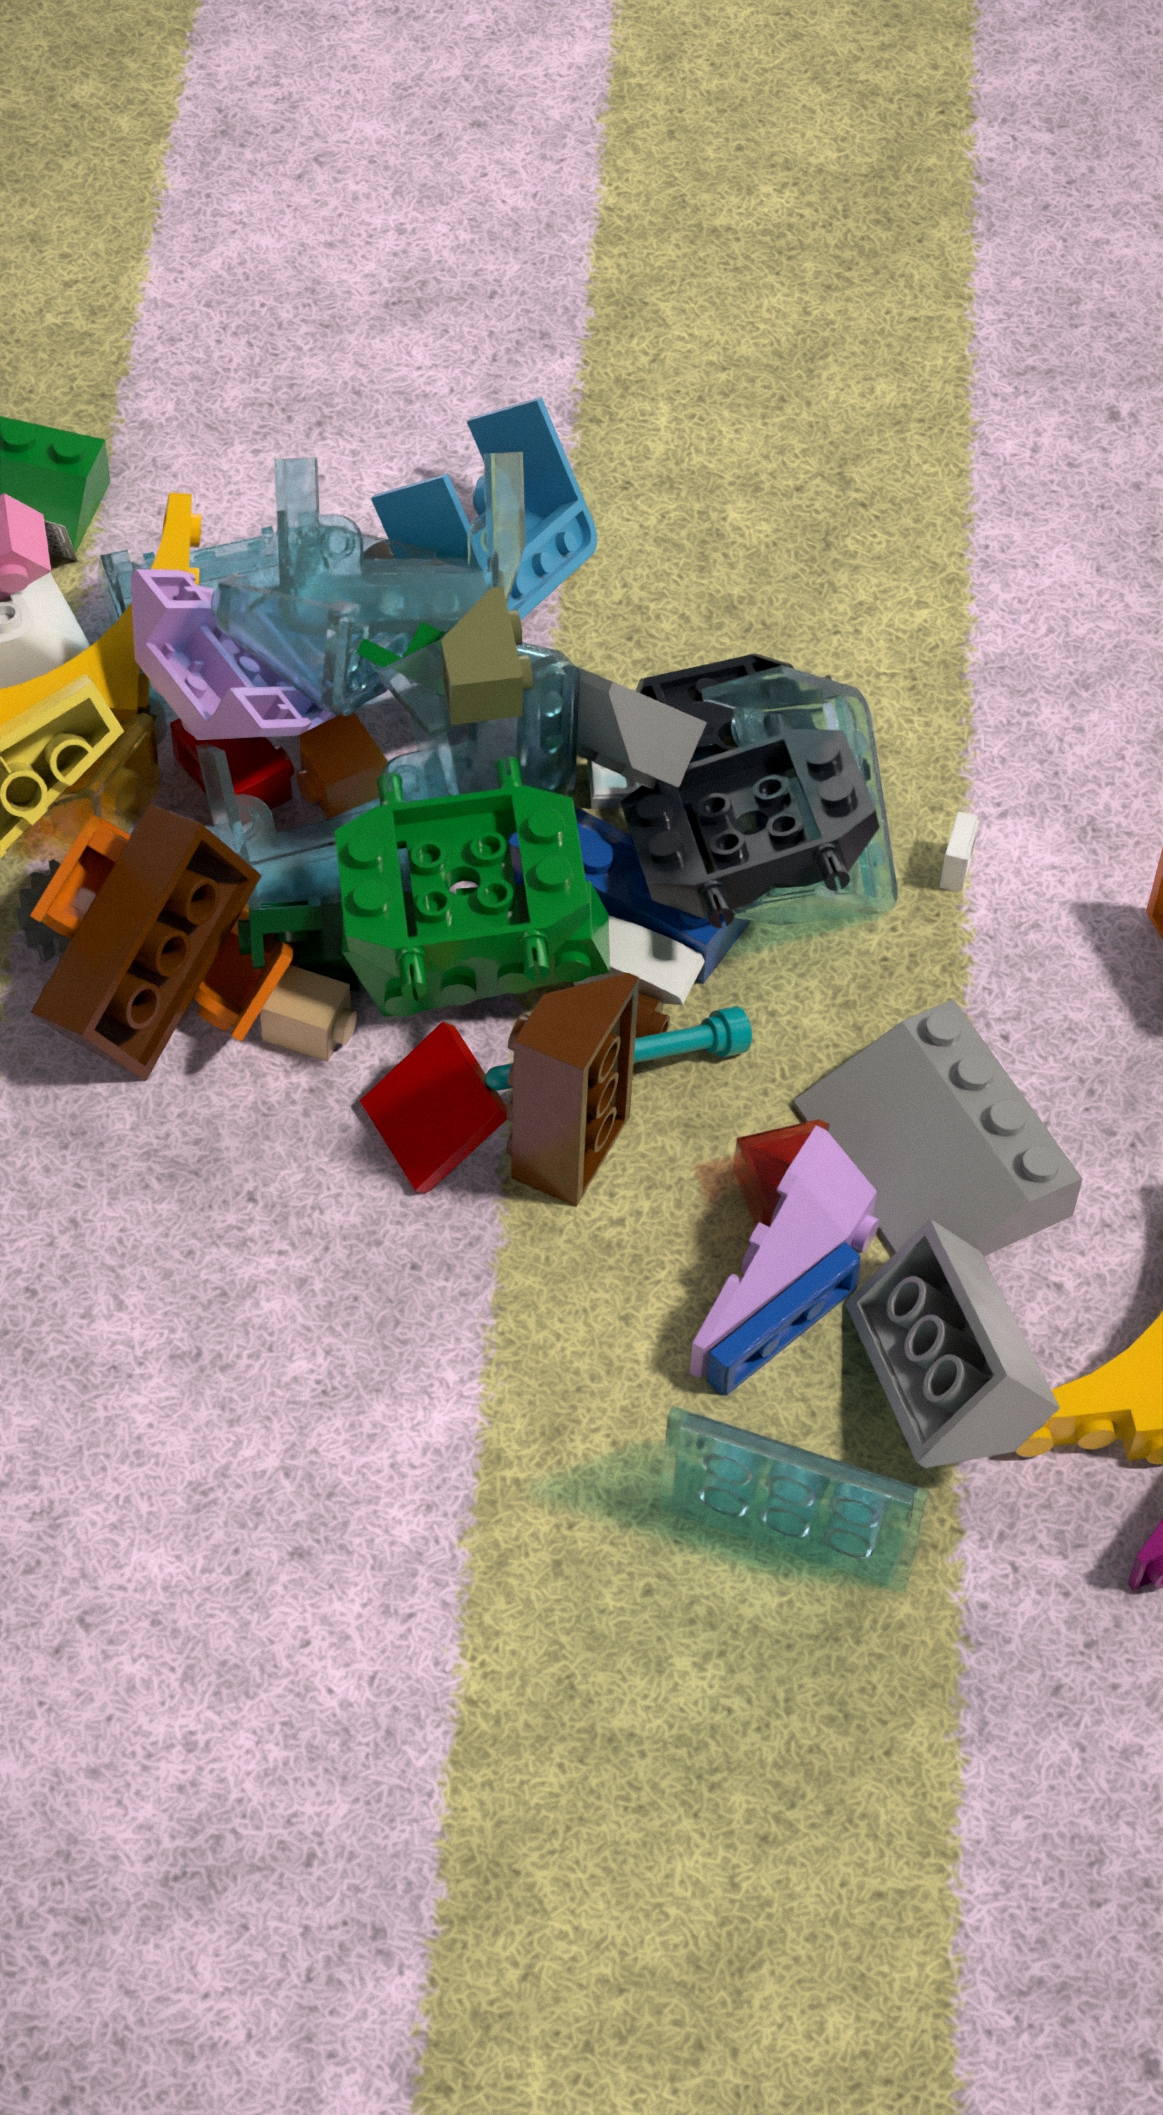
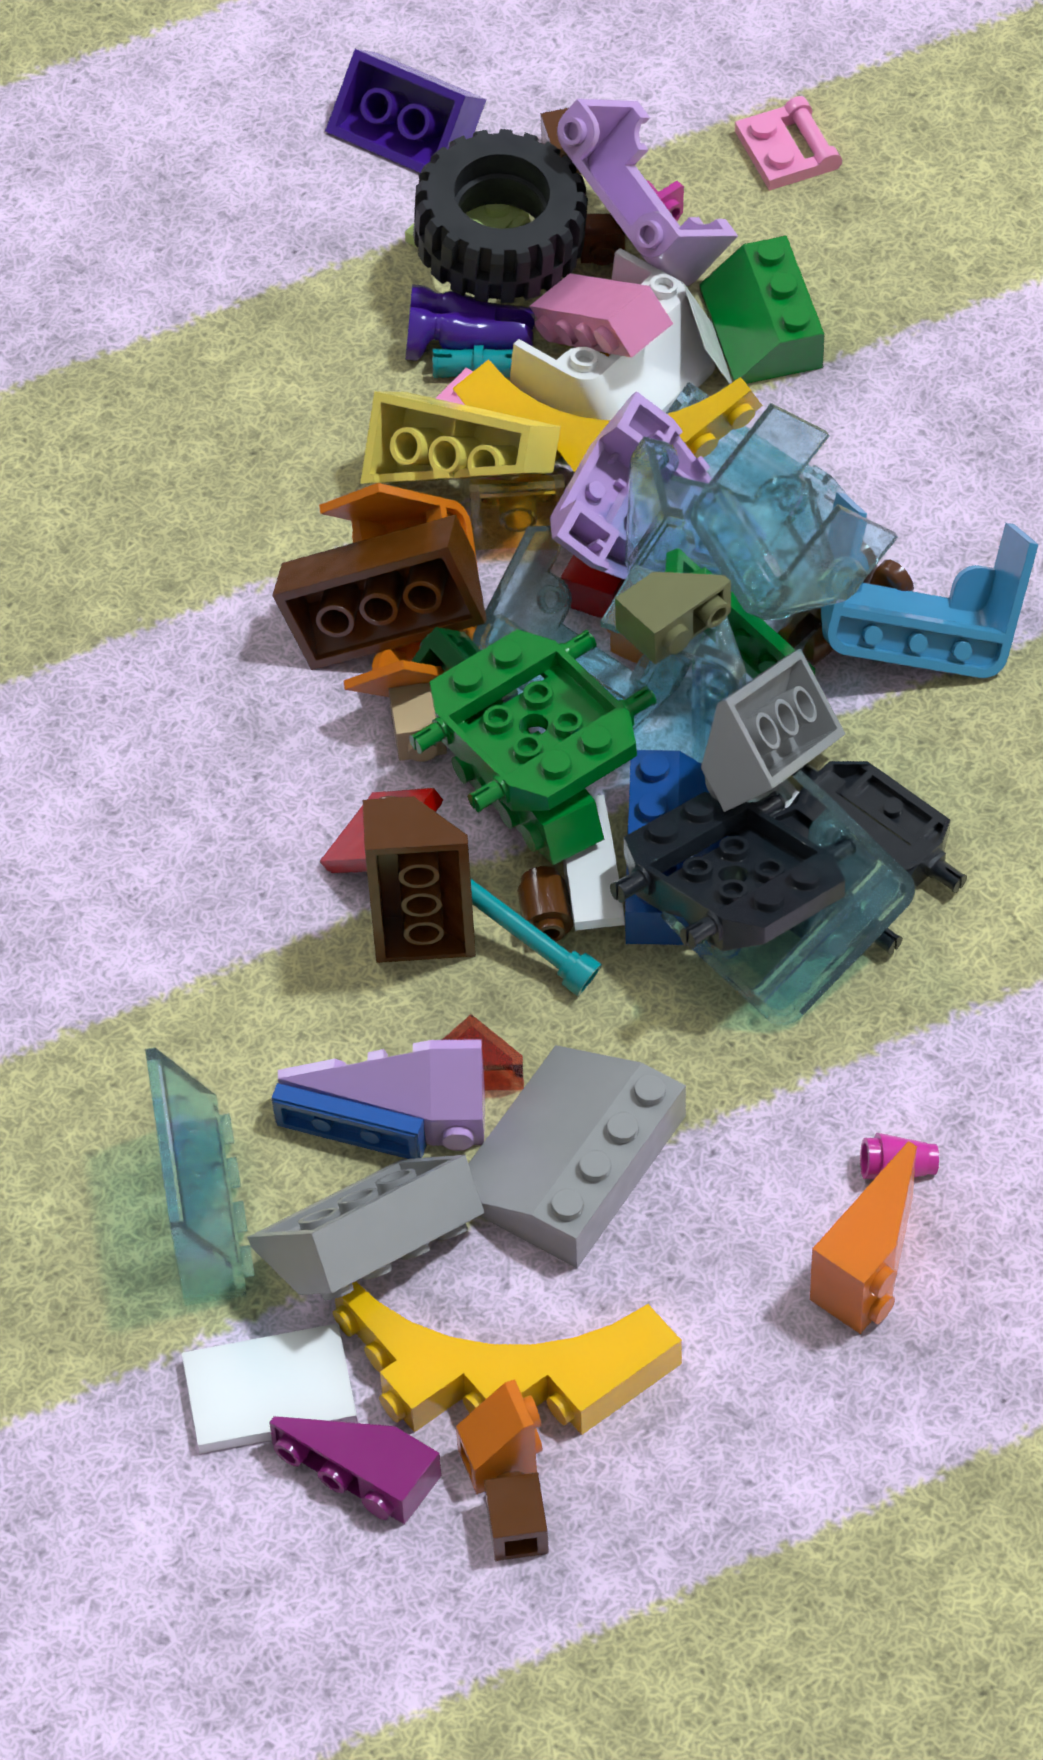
camera: 65 degrees right, 0 degrees up
(959, 852) = (854, 1038): white tile -> none
(1065, 1559) = (248, 1382): none -> white tile
(1114, 893) = (881, 1149): none -> dark pink cone

